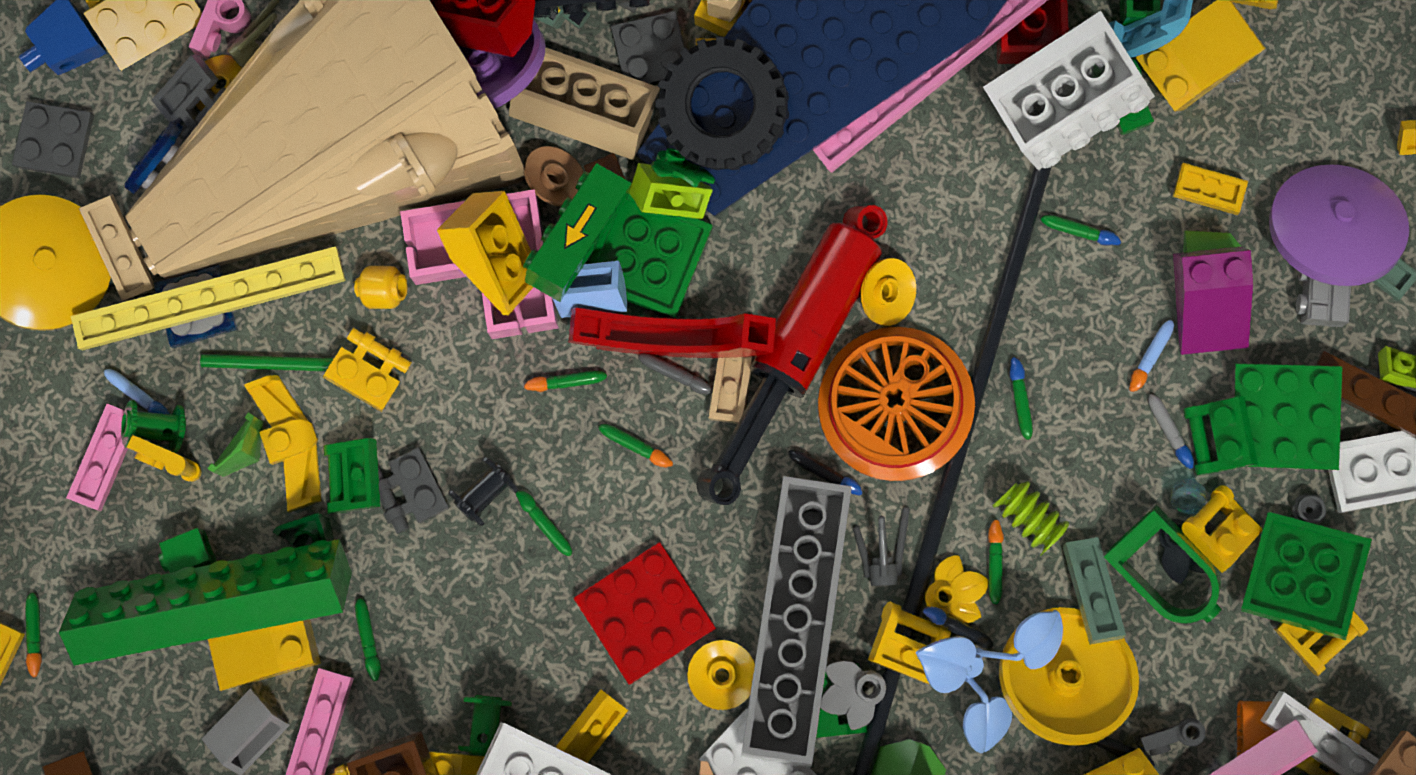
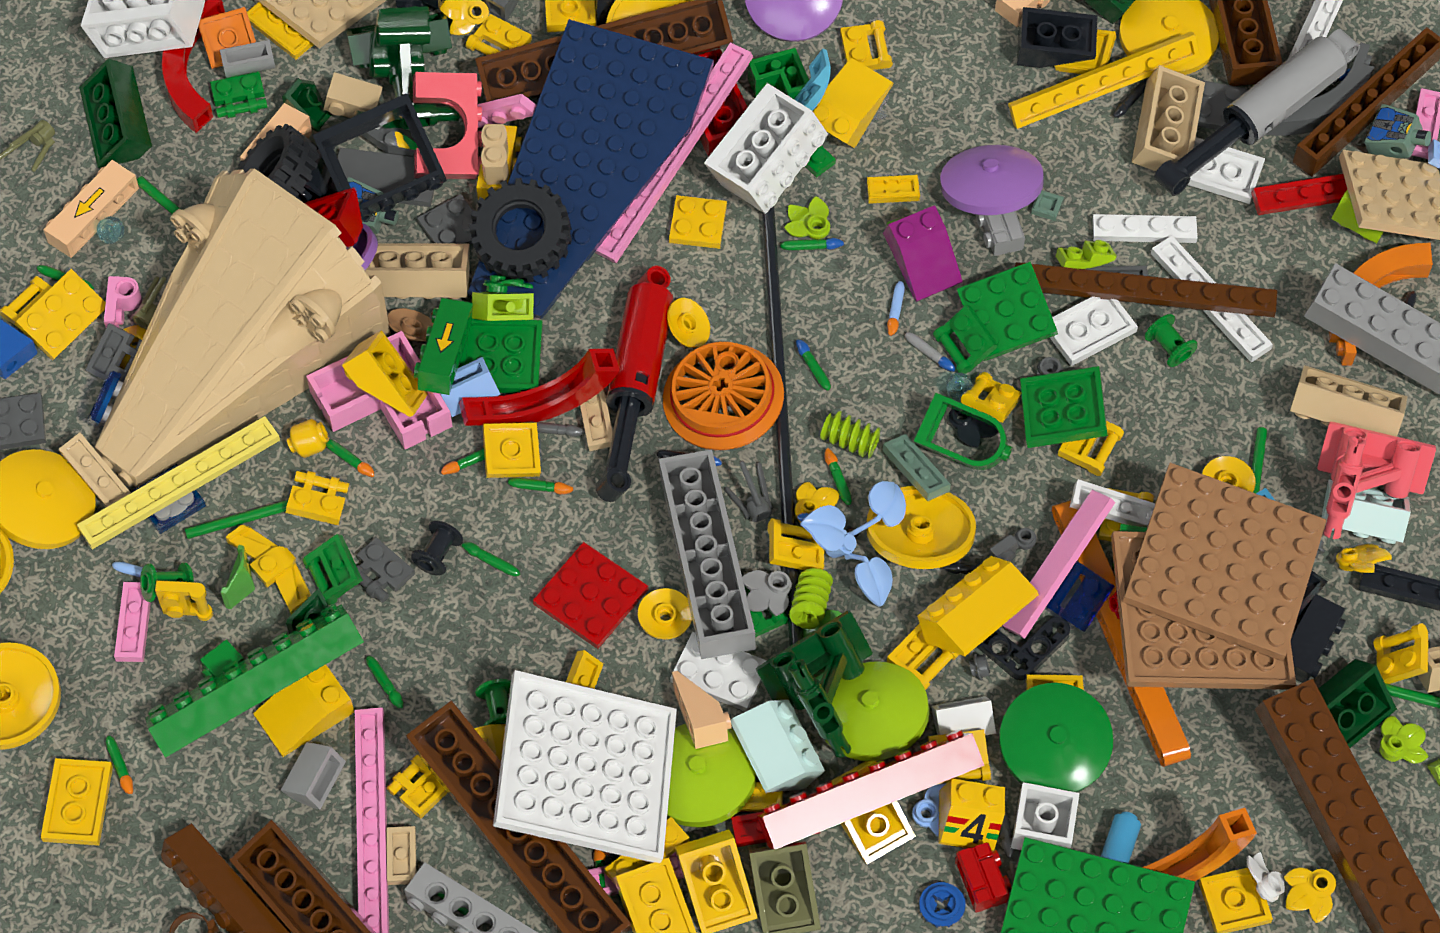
camera: 25 degrees left, 20 degrees down
(434, 346) = (362, 467): none -> green piece
(615, 390) = (511, 450): none -> yellow plate
(900, 720) = (811, 598): none -> lime piece
(951, 149) = (698, 222): none -> yellow plate
(1089, 190) = (805, 219): none -> lime plate

